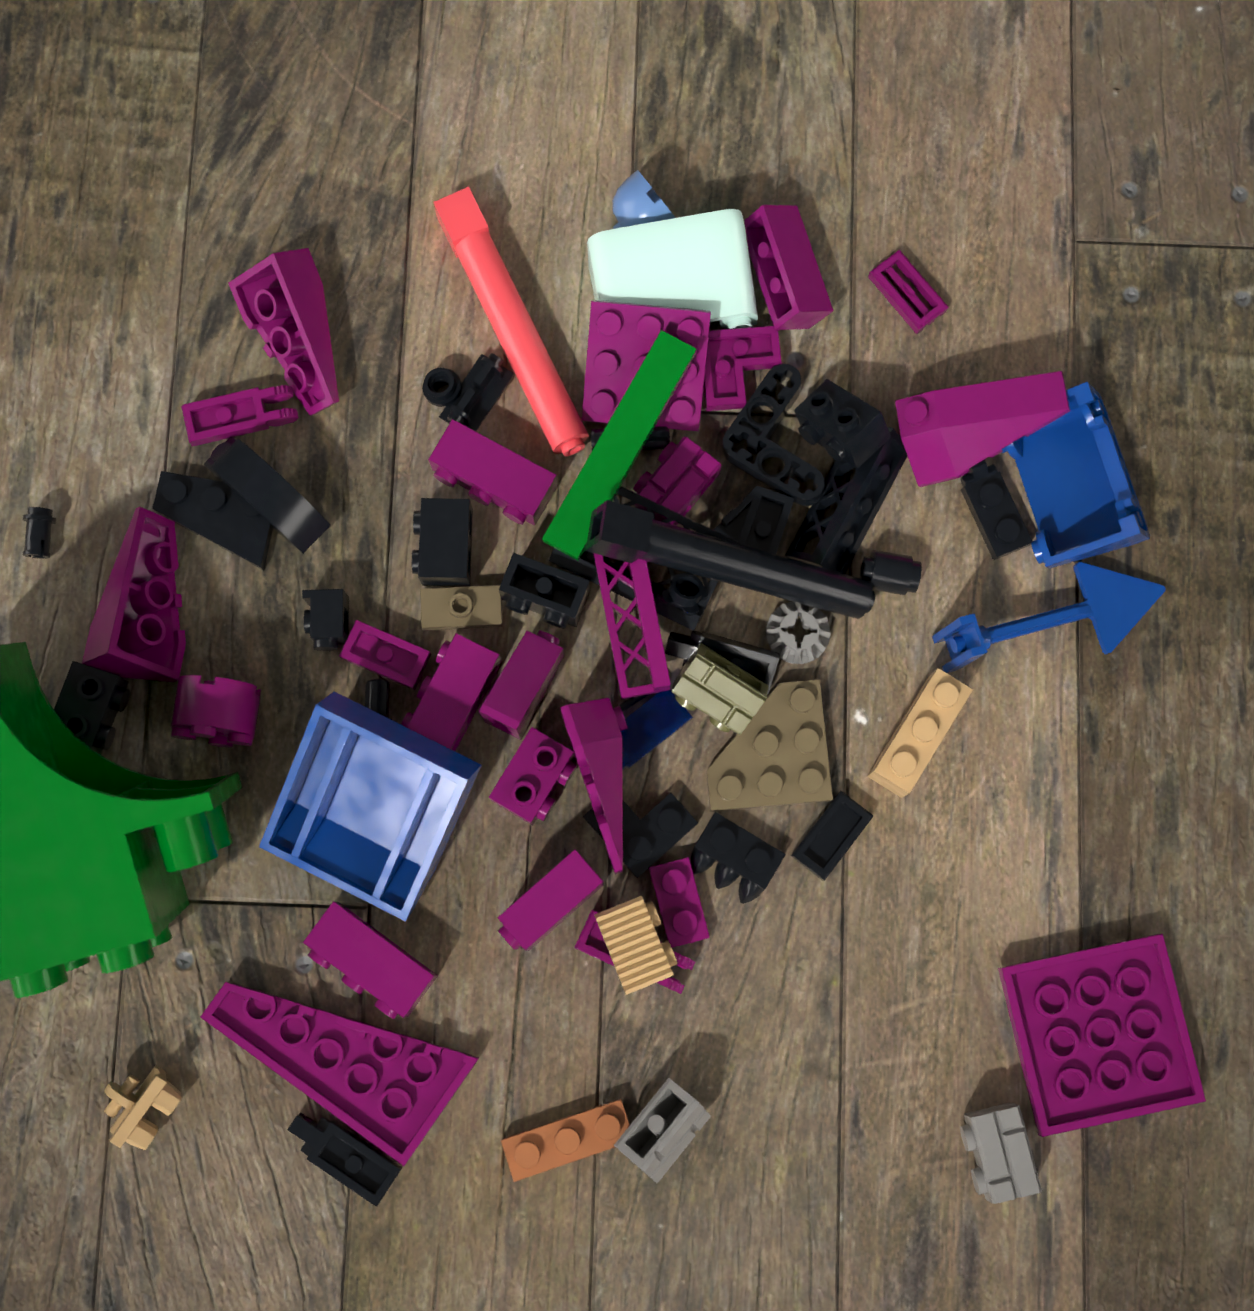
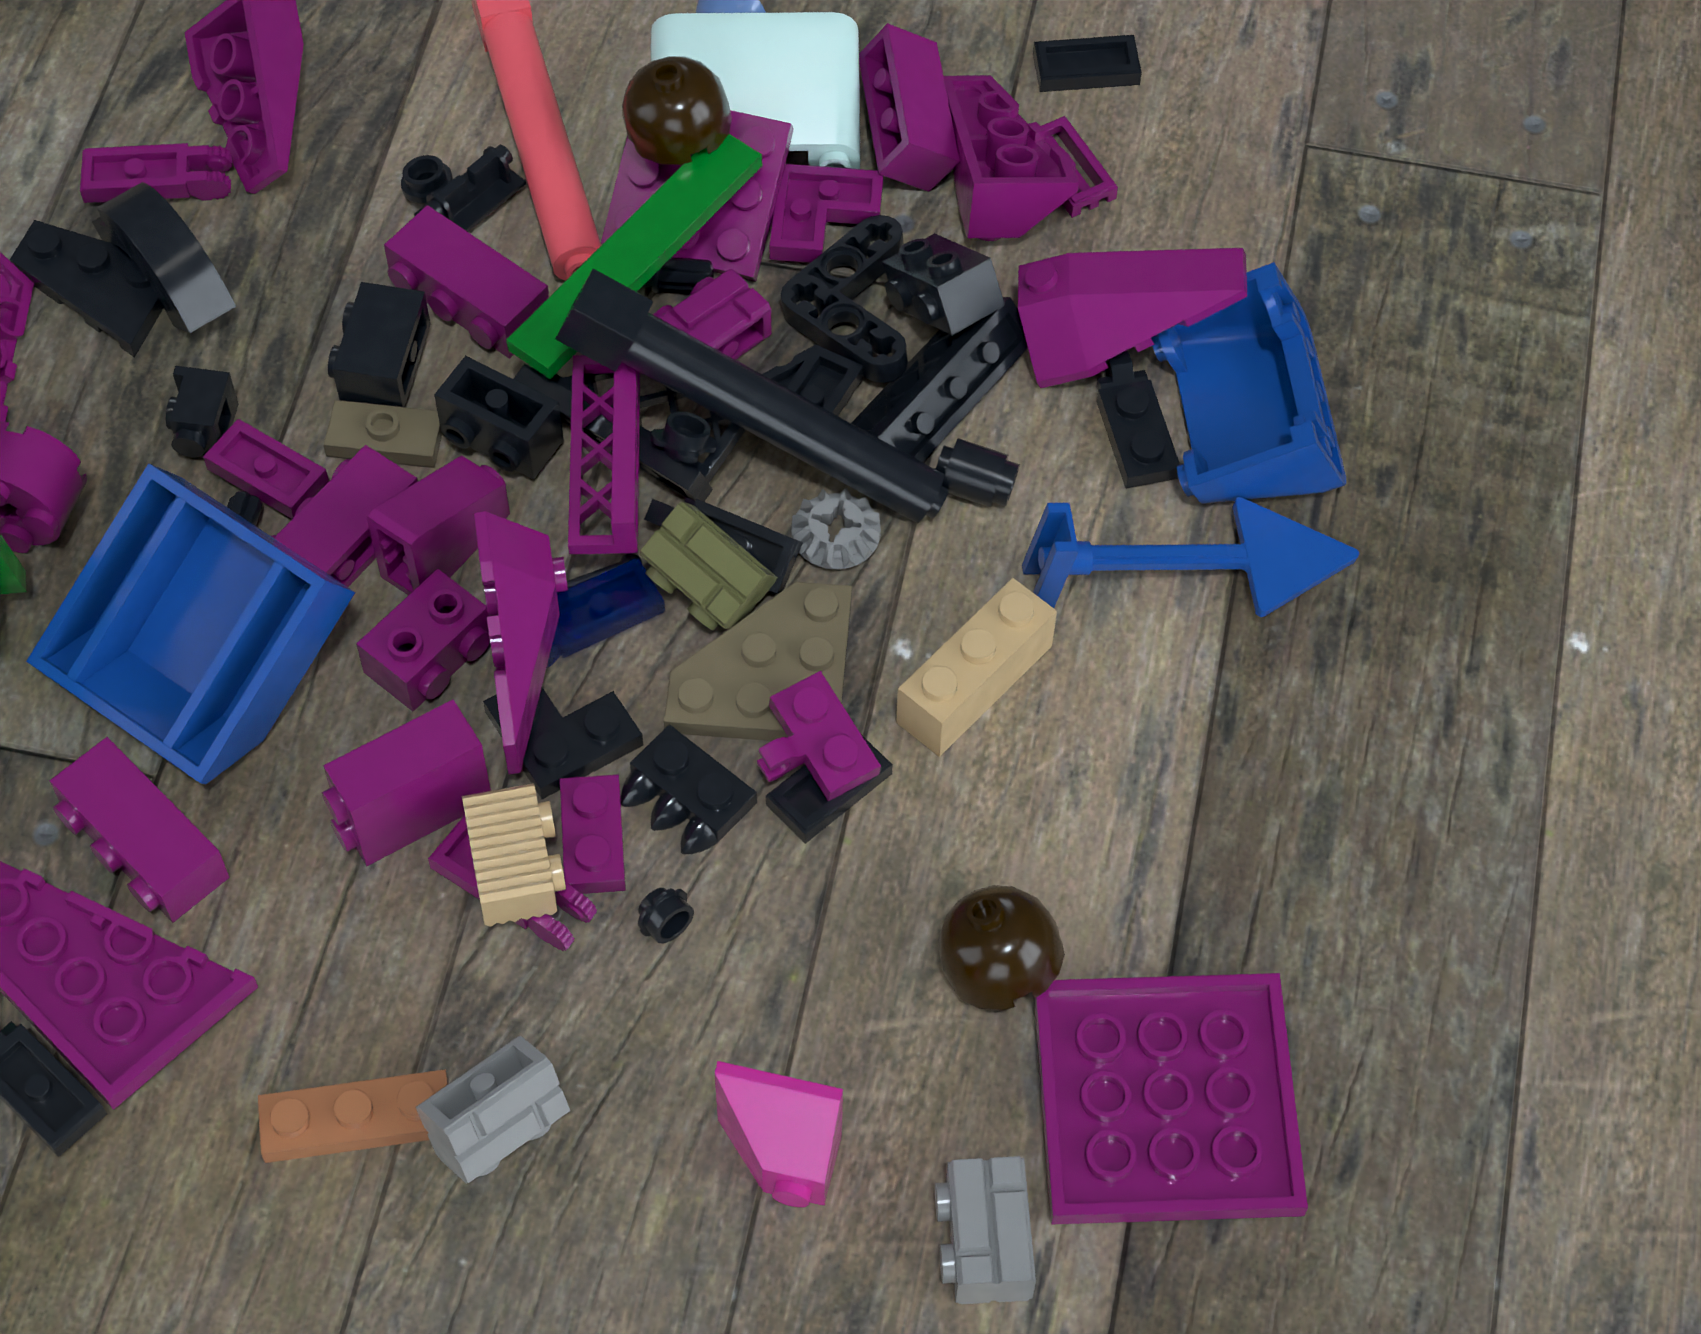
camera: 10 degrees right, 20 degrees down
(627, 325) = (675, 110): none -> dark brown cylinder
(741, 957) = (664, 914): none -> black plate
(824, 811) = (820, 737): none -> magenta plate
(860, 1117) = (781, 1130): none -> dark pink slope
(871, 313) = (1005, 168): none -> magenta wedge
(906, 196) = (1087, 63): none -> black tile
(975, 950) = (1000, 947): none -> dark brown cylinder

